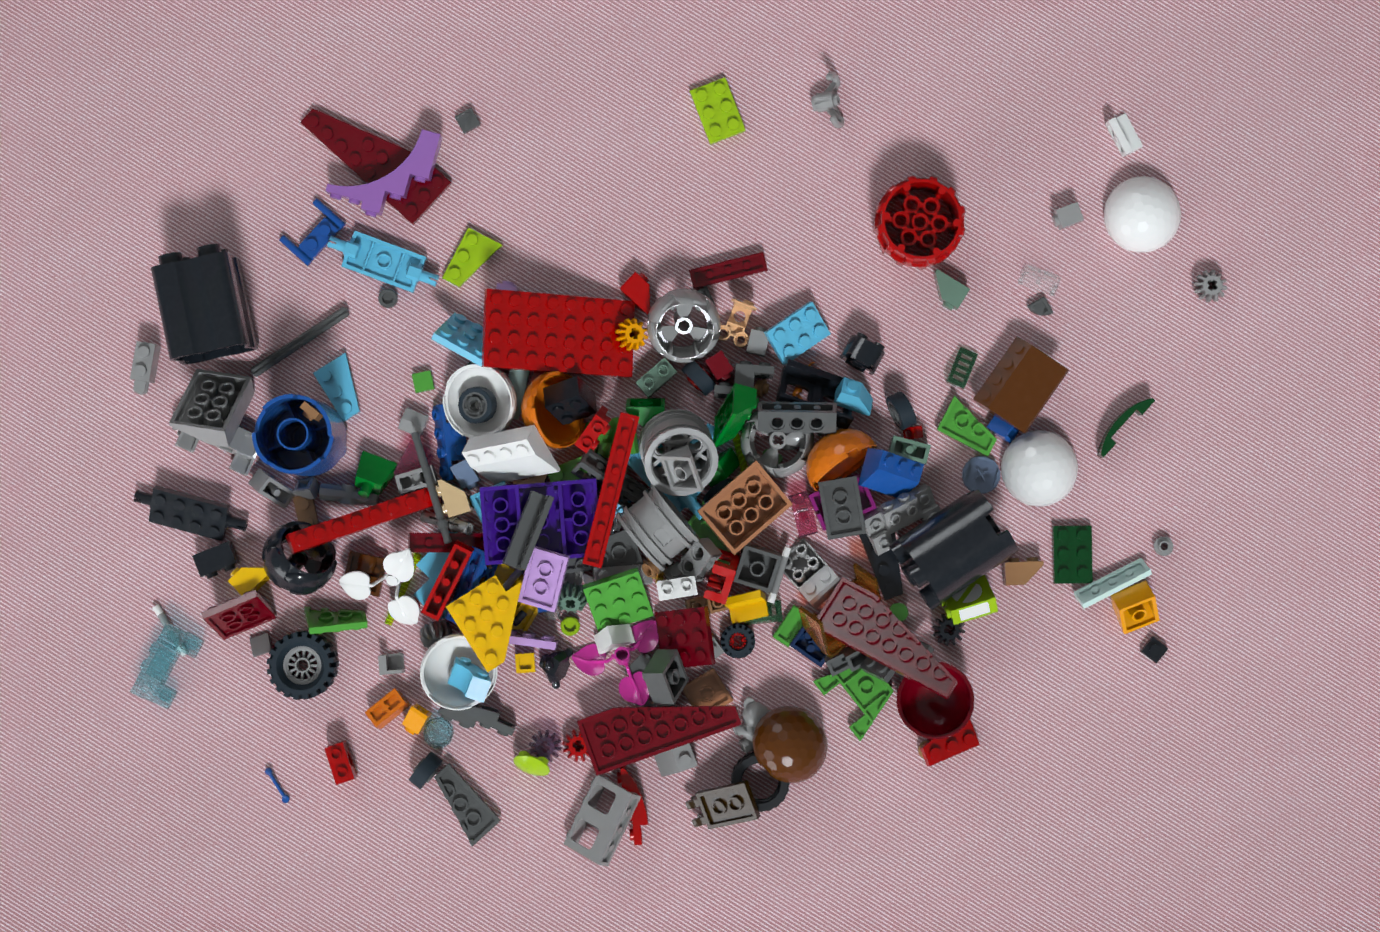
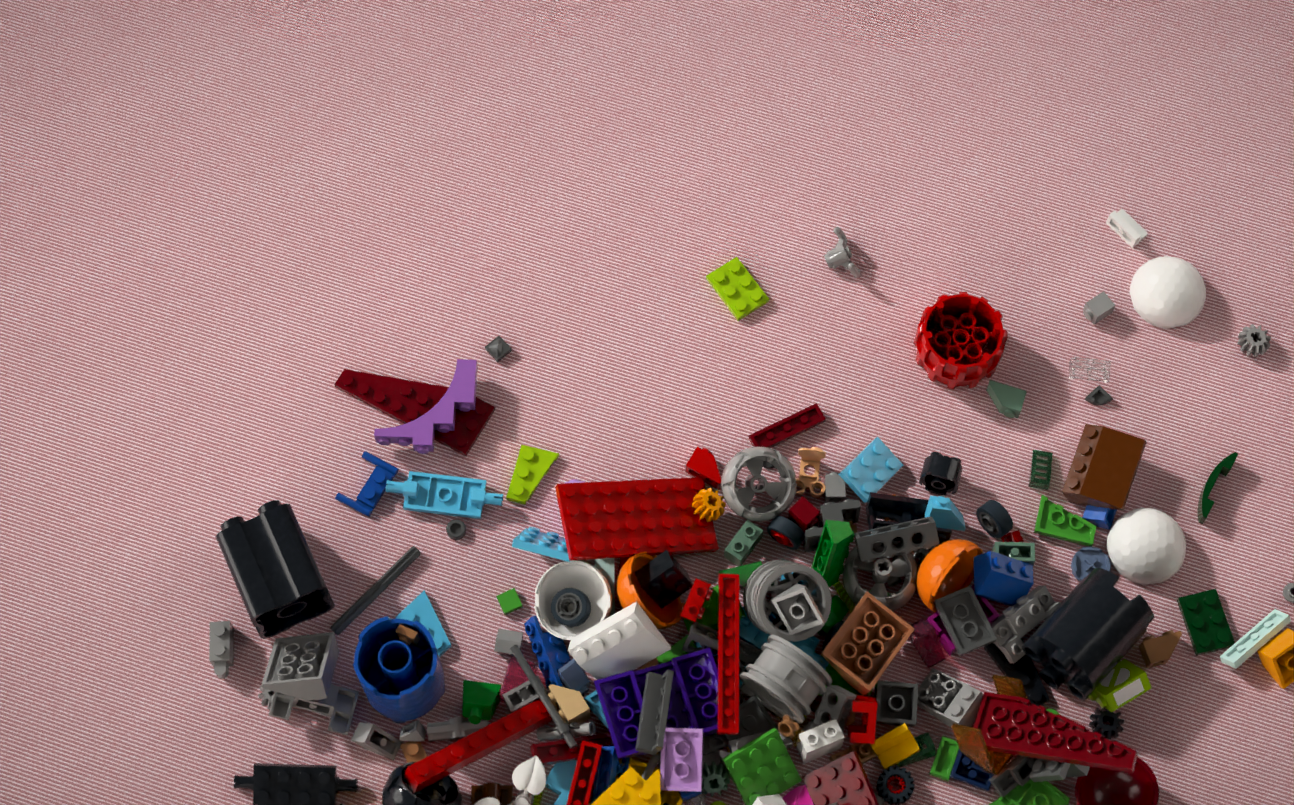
camera: 20 degrees left, 20 degrees down
(774, 591) = (920, 707): light grey bar -> none

